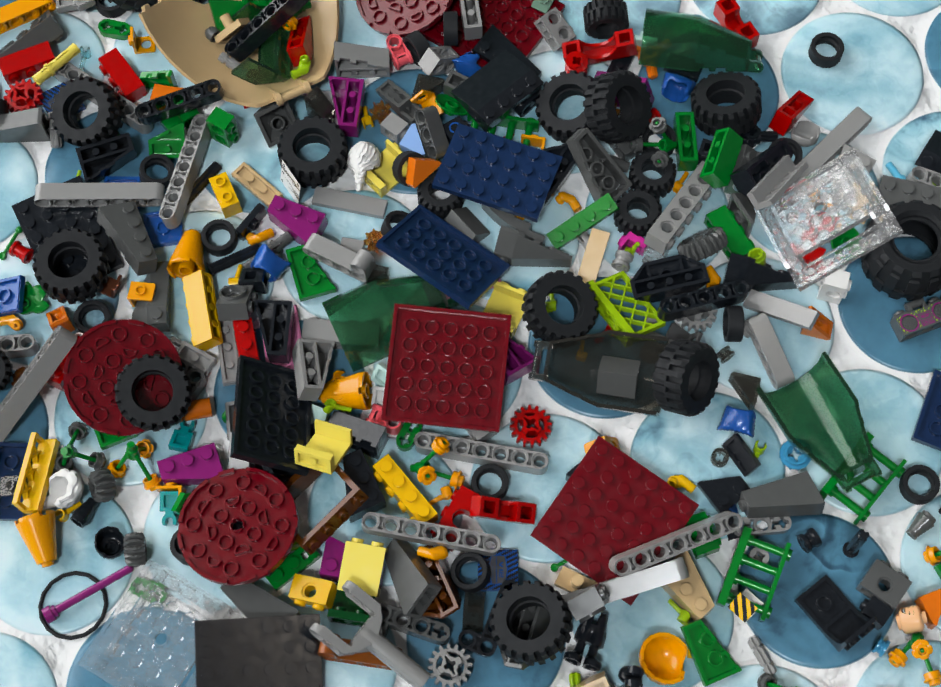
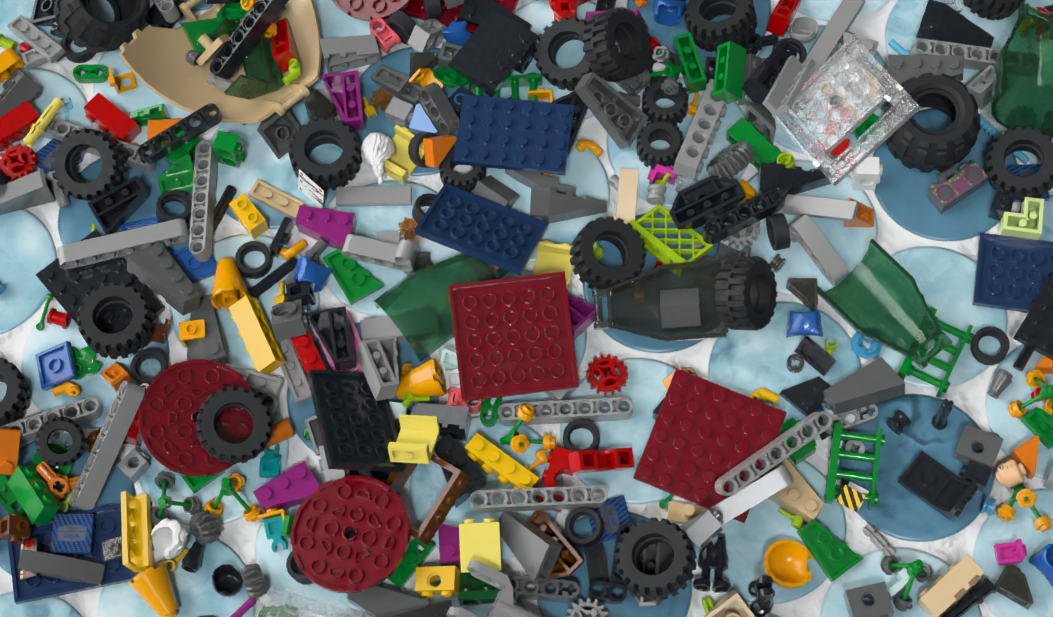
camera: 10 degrees left, 0 degrees up
(45, 406) = (134, 474): none -> light grey brick
(433, 553) = (546, 516): light orange arm -> none
(582, 221) = (608, 164): green plate -> none

